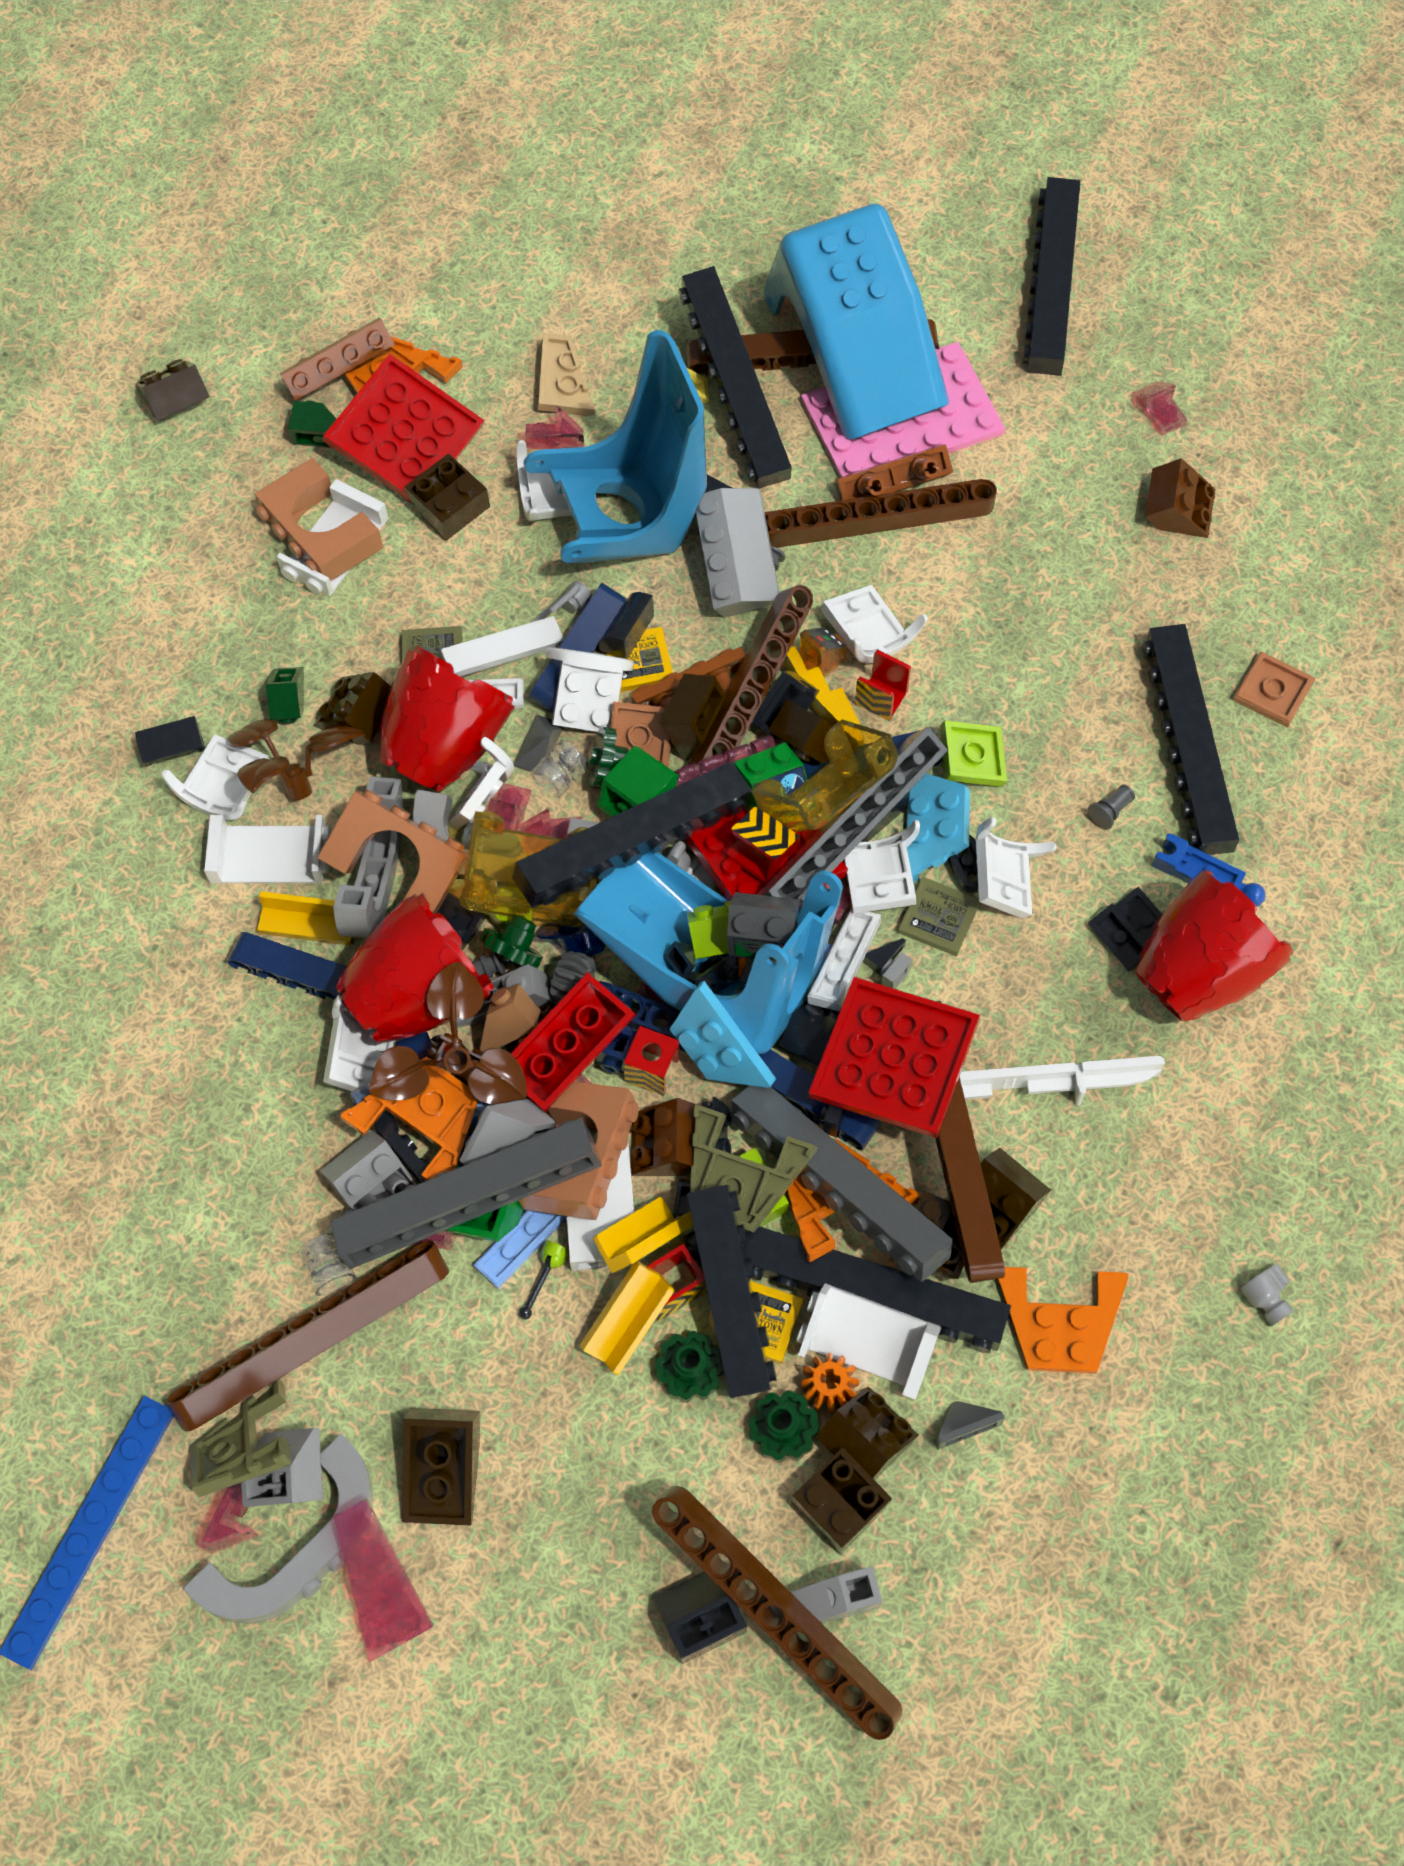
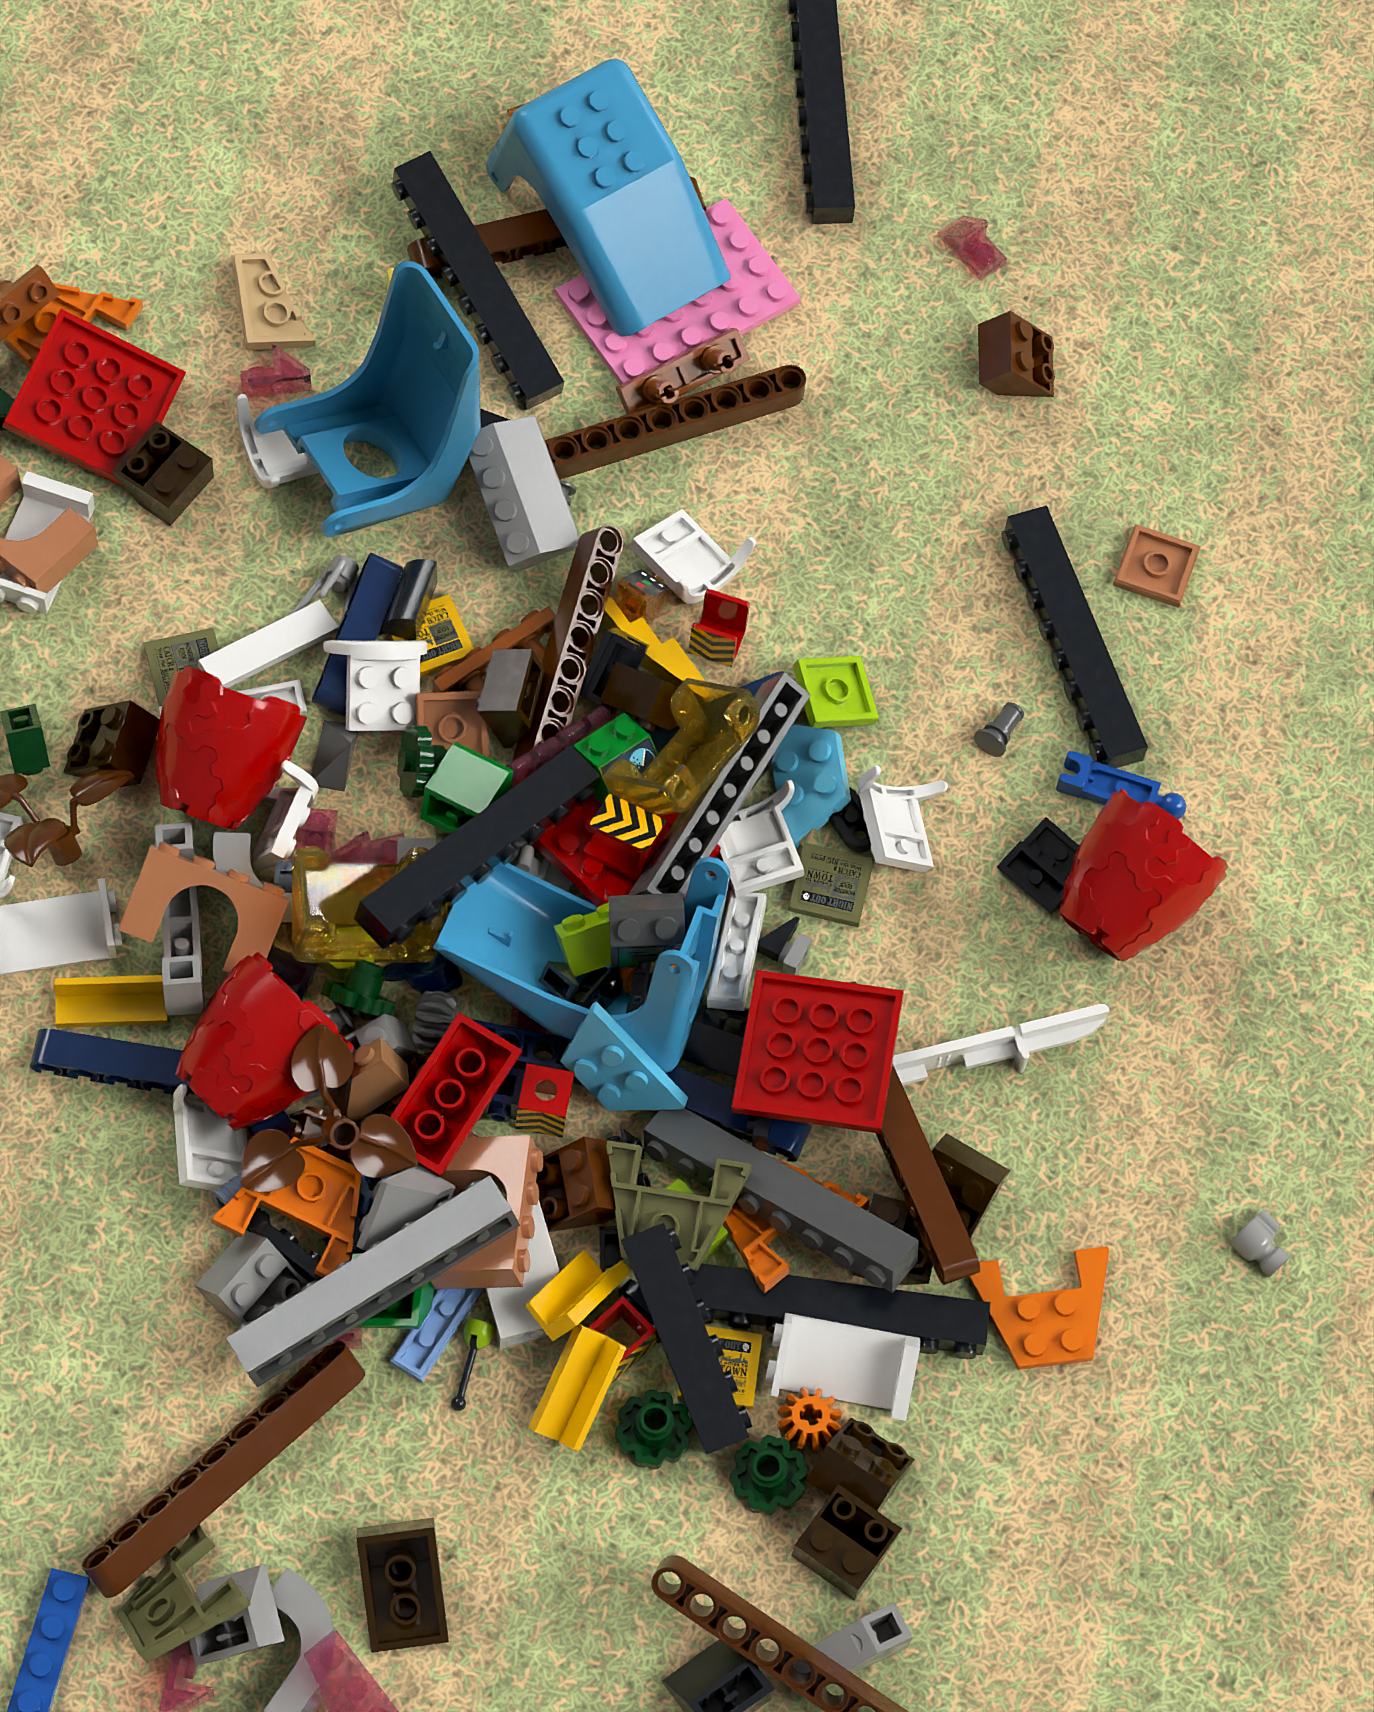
camera: 20 degrees left, 0 degrees up
(327, 1268) = (222, 1382): clear wheel -> none
(561, 767) = (369, 778): clear wheel -> none
(967, 1421) = (963, 1435): dark grey slope -> none

